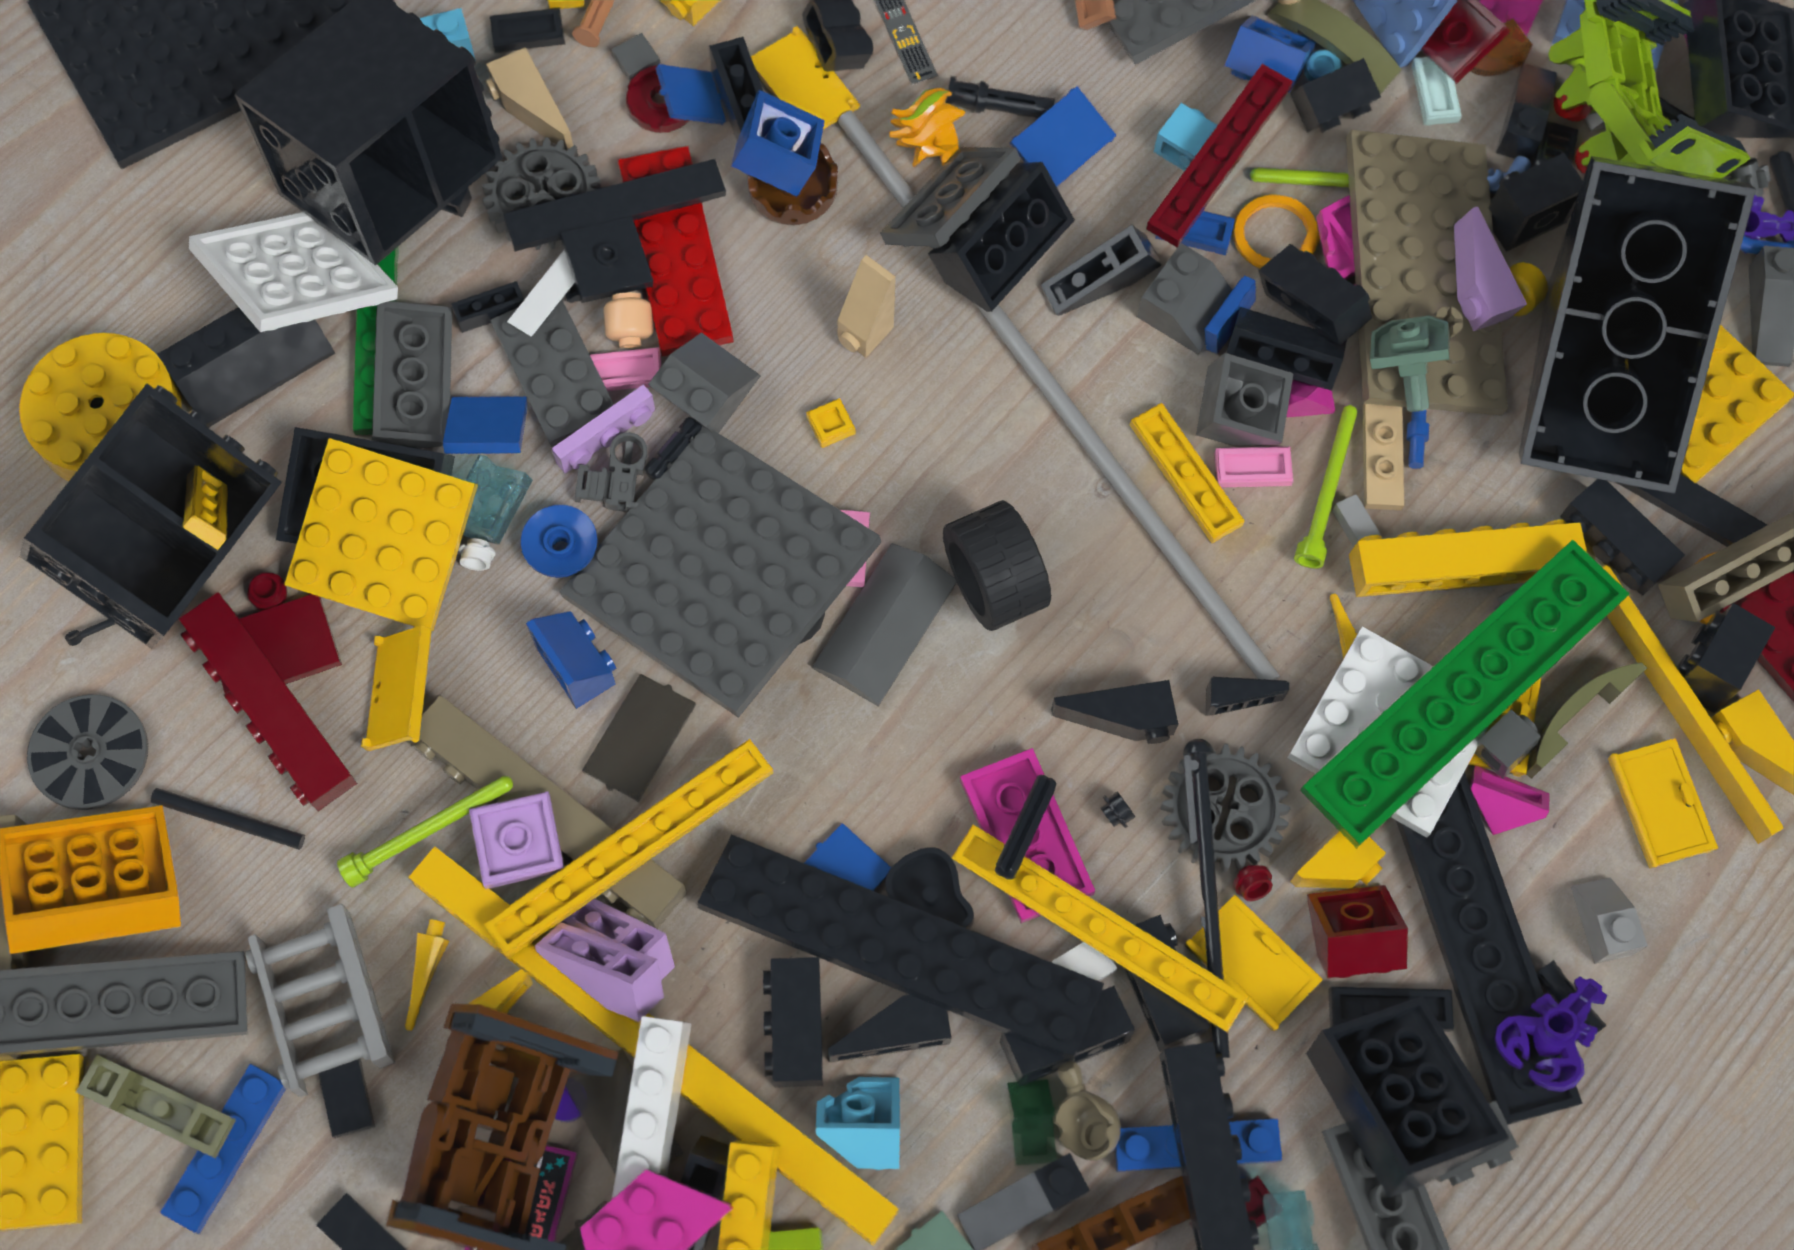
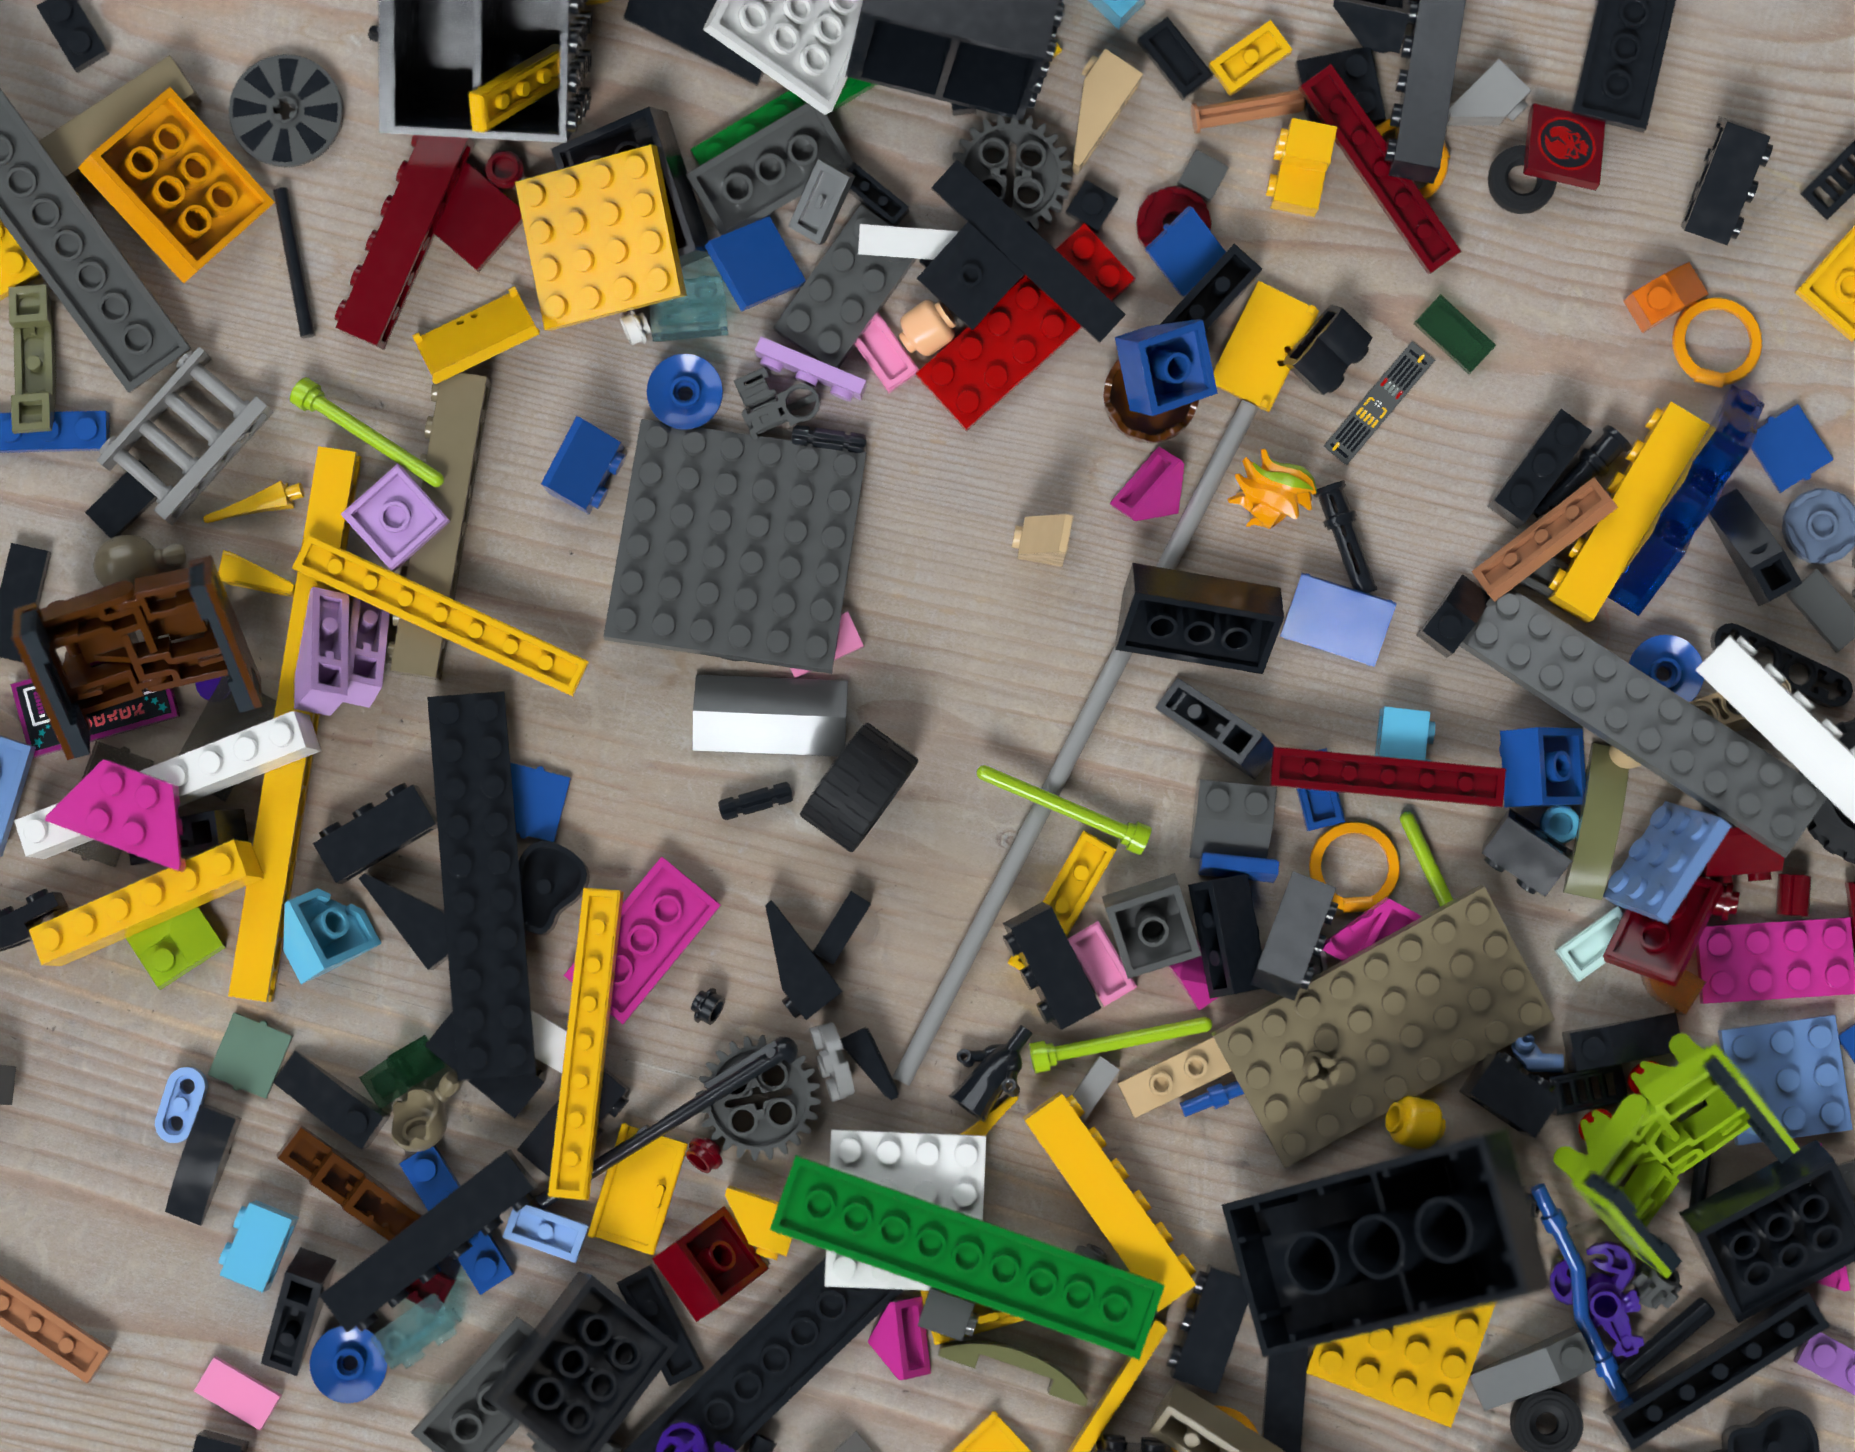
camera: 65 degrees right, 15 degrees up
(399, 1114) = (133, 557): none -> dark tan hair
(467, 344) = (821, 201): none -> plate
(606, 149) = (1091, 206): none -> black plate
(639, 737) = (552, 562): clear smoke piece -> none
(704, 381) = (901, 431): dark grey slope -> none
(830, 423) = (933, 563): yellow tile -> none
(866, 217) = (1153, 489): none -> dark pink slope
(950, 196) = (1206, 551): dark grey plate -> none
(954, 673) = (755, 801): none -> black axle
(1025, 827) = (639, 936): black axle -> none
(1107, 656) = (842, 927): none -> black piece
(1112, 57) = (1454, 617): none -> black slope
(1158, 382) = (1132, 835): none -> lime piece
(1228, 720) = (832, 1061): none -> light grey plate
(1237, 497) = (1050, 966): none -> black brick
(1255, 1064) = (546, 1232): none -> light blue plate
(1311, 608) = (992, 1076): none -> black piece
(1410, 346) = (1271, 1052): sand green piece -> none
(1482, 275) = (1392, 1084): lavender slope -> none

